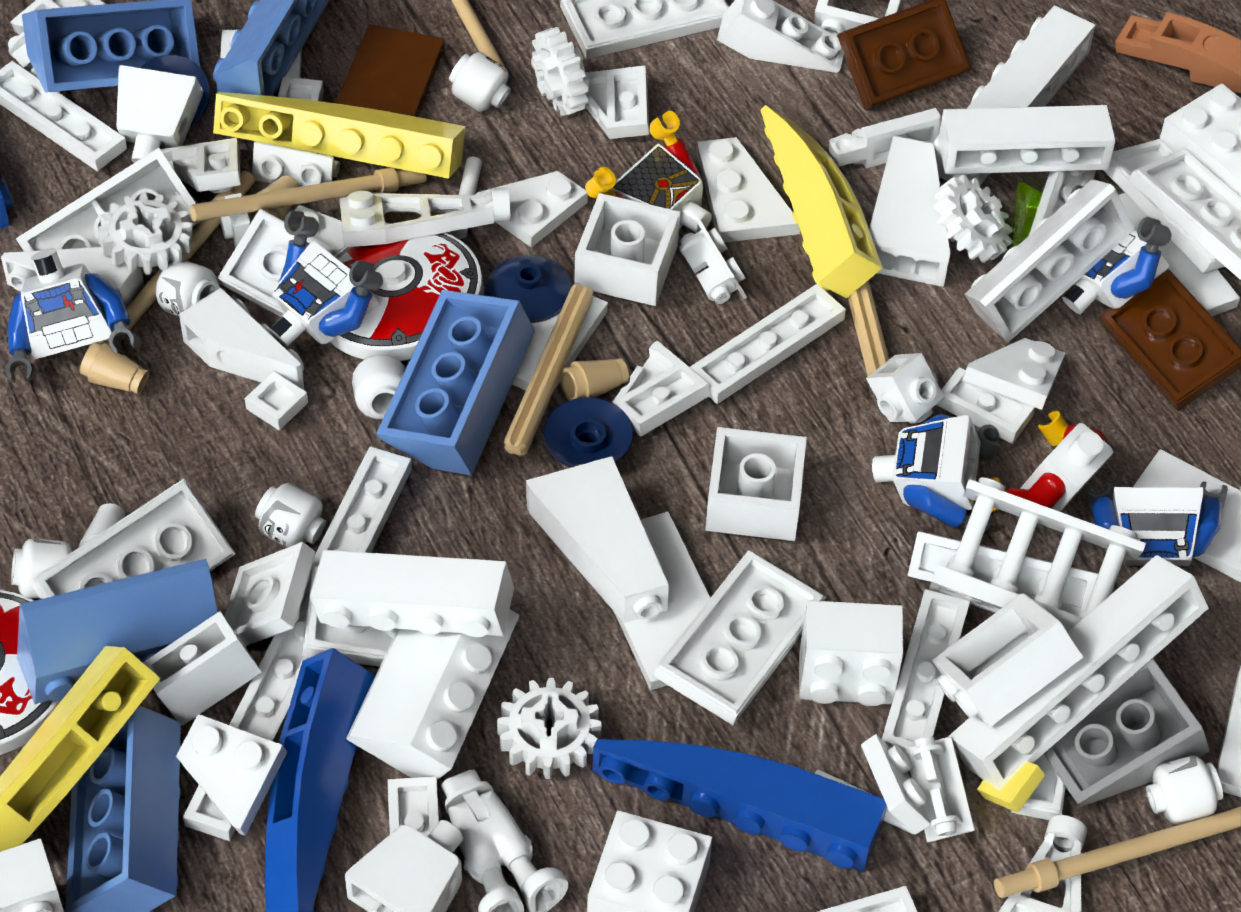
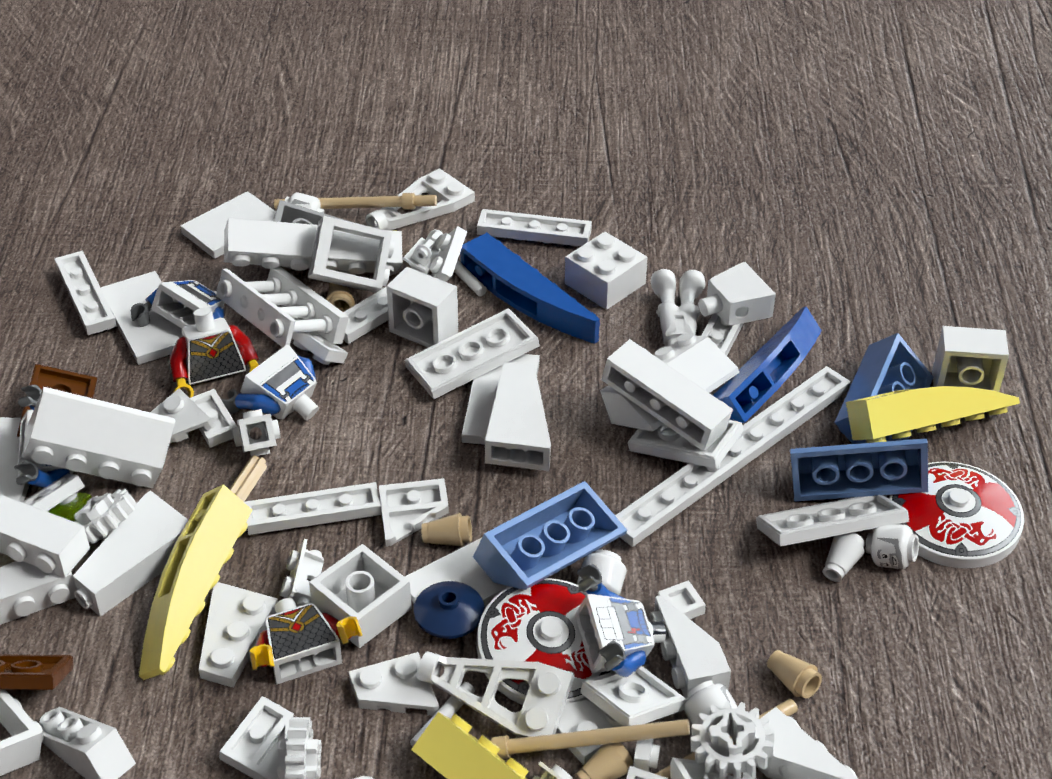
camera: 150 degrees left, 10 degrees down
(63, 312) = (821, 702): torso -> none
(201, 668) = (808, 430): white brick -> none
(231, 767) = (814, 382): white wing -> none
(269, 593) = (751, 465): white plate -> none
(290, 515) = (710, 515): white head -> none
(525, 728) = (603, 344): white gear -> none
(548, 370) = (467, 545): tan axle -> none
(587, 421) = (479, 492): dark blue dish -> none
(756, 484) = (399, 414): white brick -> none
(872, 143) = (91, 613): white hinge -> none

